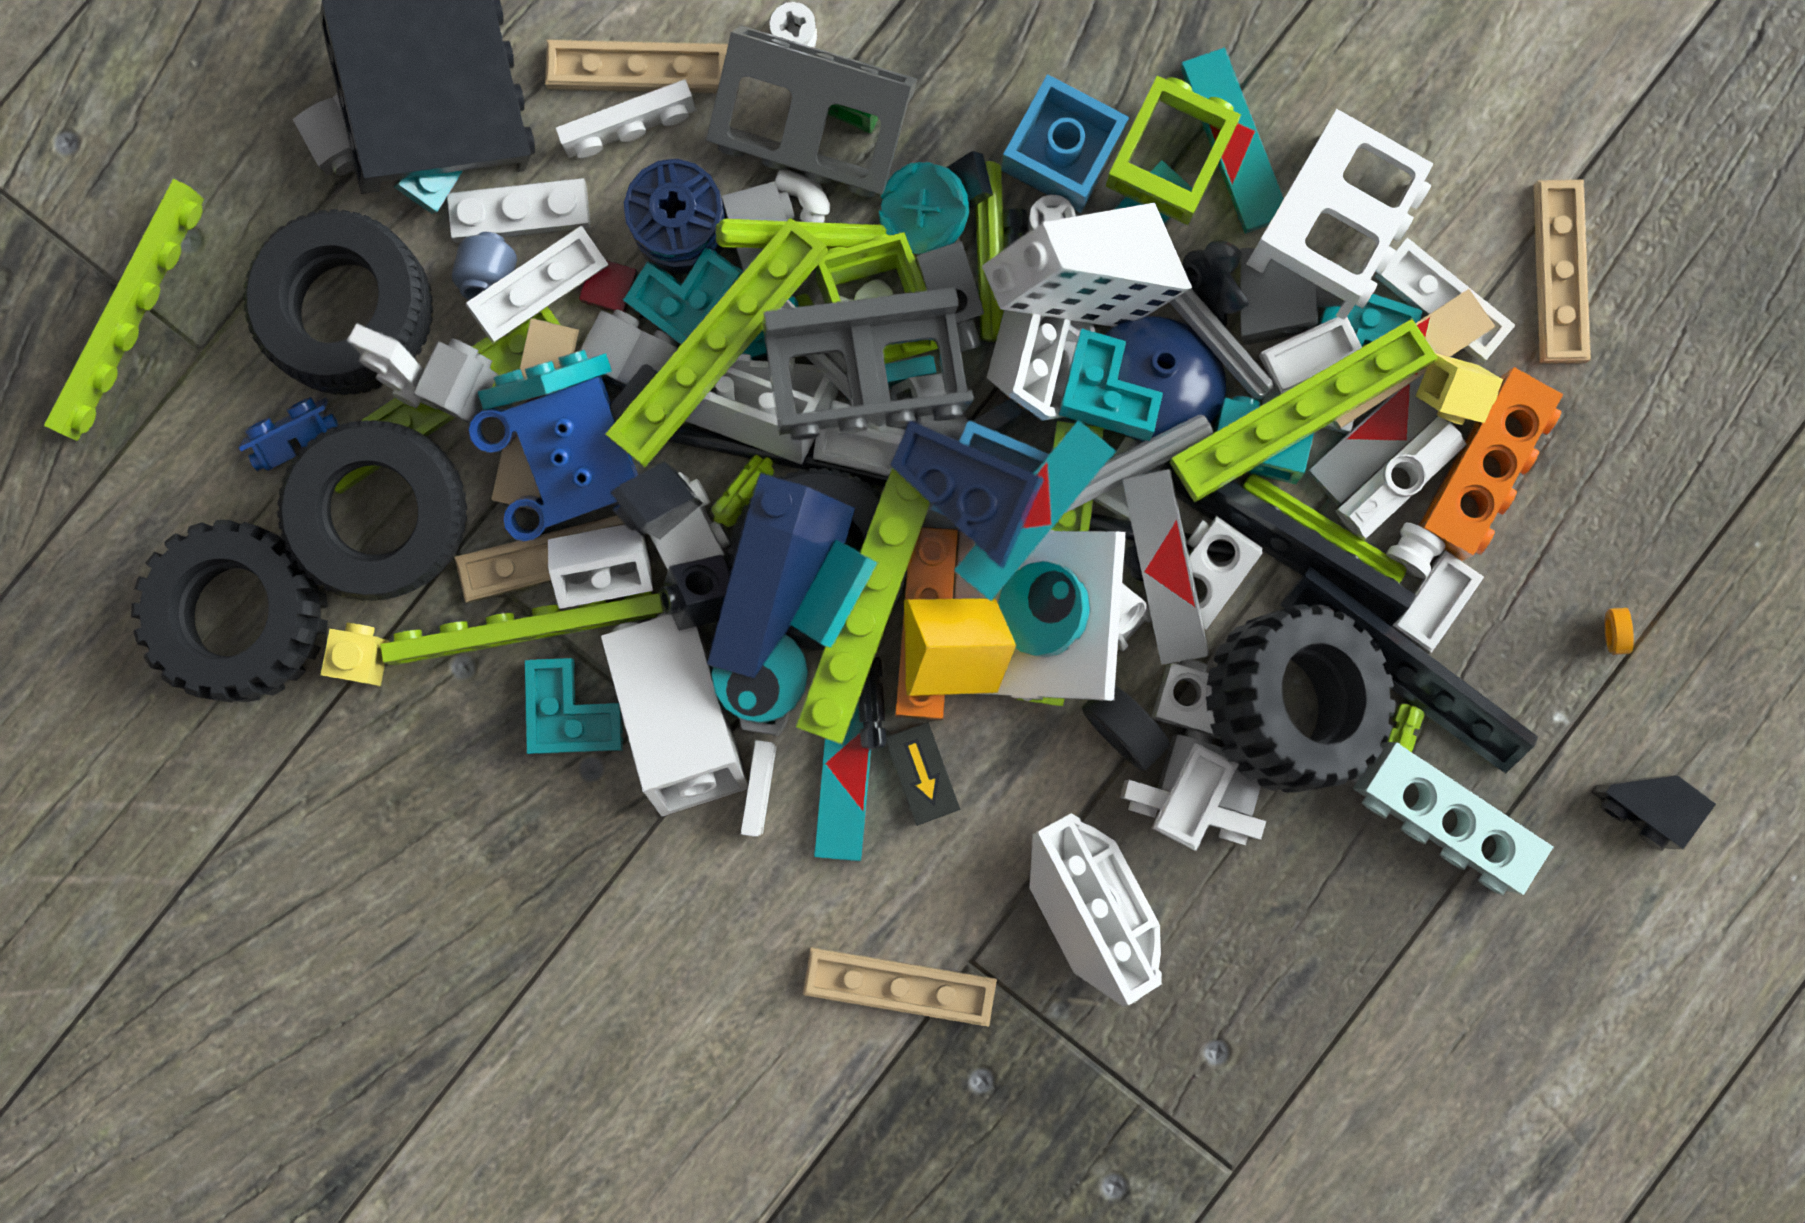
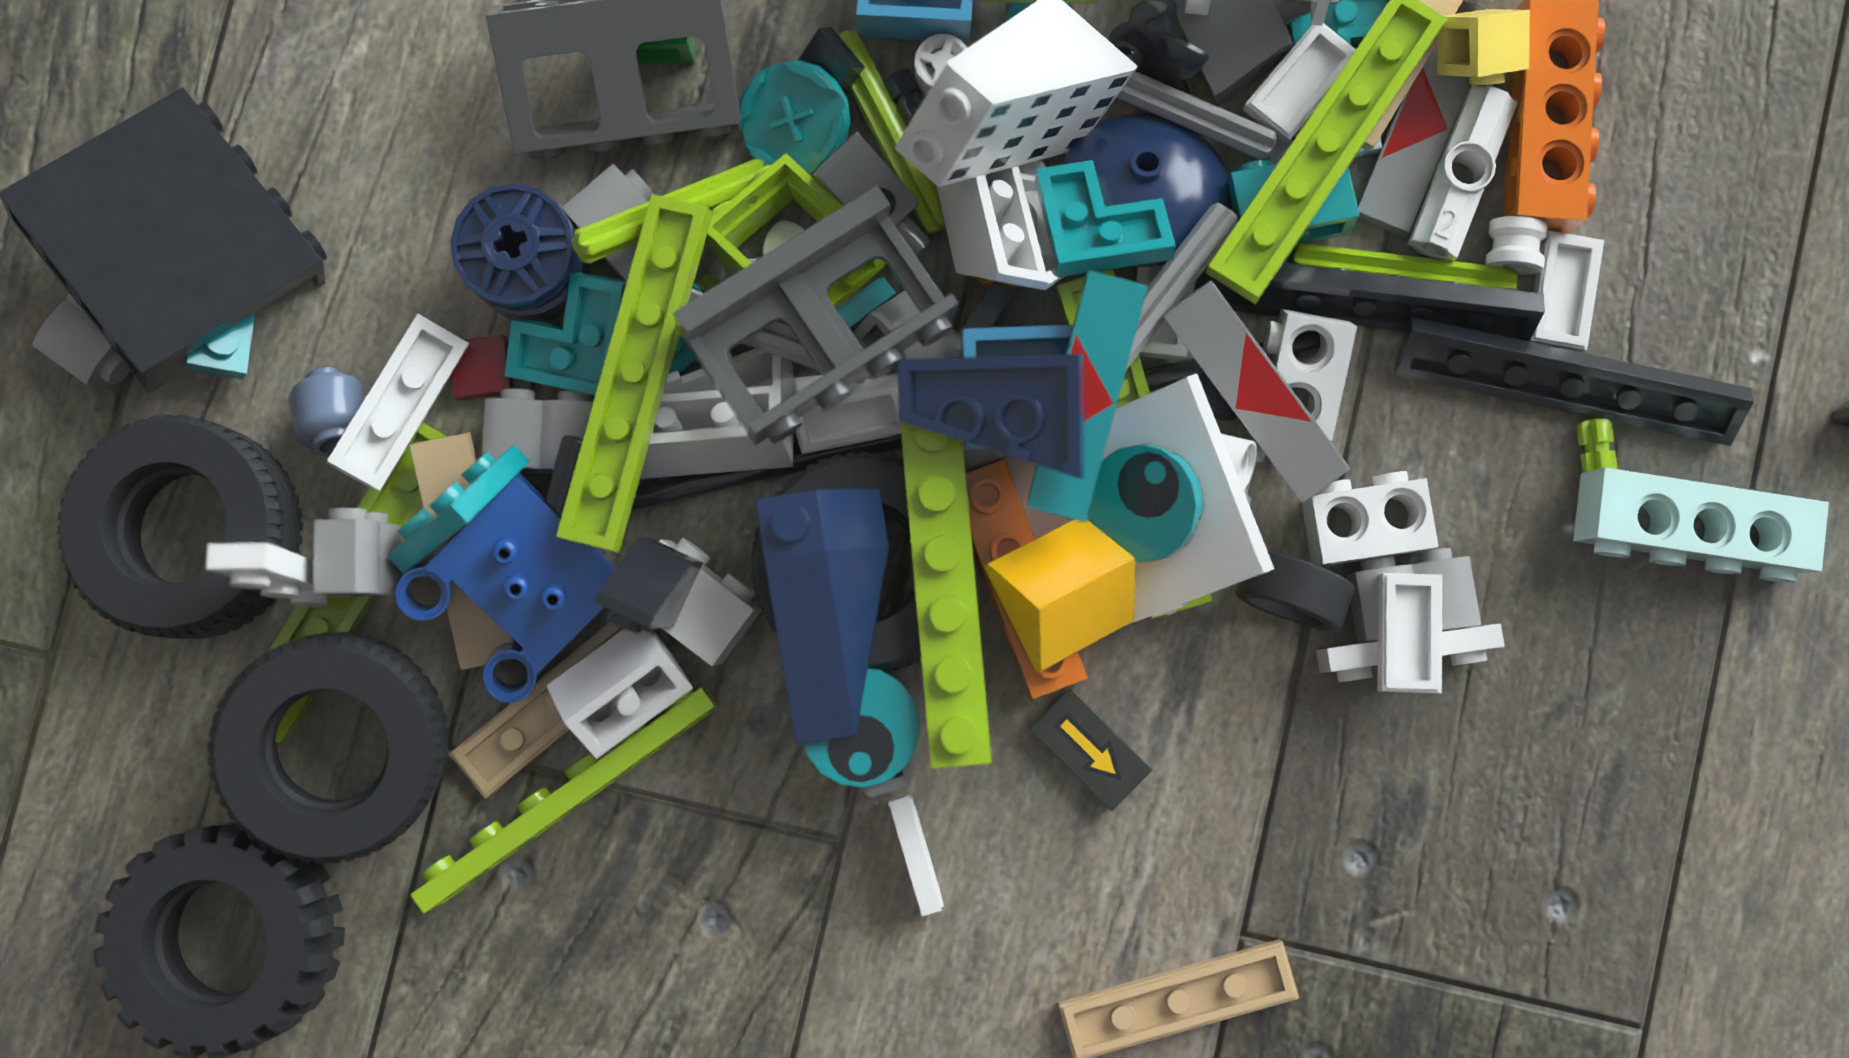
camera: 25 degrees left, 0 degrees up
(271, 439) = (179, 720): blue hinge -> none
(354, 655) = (386, 920): light yellow brick -> none
(519, 209) = (339, 328): white plate -> none
(556, 722) = (653, 886): teal plate -> none
(627, 120) = (414, 172): white plate -> none
(633, 65) = (394, 109): tan tile -> none
(673, 714) = (778, 812): white slope -> none
(705, 577) = (745, 644): black brick -> none
(740, 491) = (739, 528): lime axle -> none
(808, 192) = (655, 159): white arm -> none
(833, 593) = (902, 597): teal tile -> none
(843, 796) = (1013, 806): teal tile -> none
(872, 709) = (1004, 708): black axle -> none
(1096, 909) = (1359, 813): white wedge -> none
(1348, 688) = (1524, 437): black tyre -> none
(1619, 631) = (1780, 230): light orange tile -> none

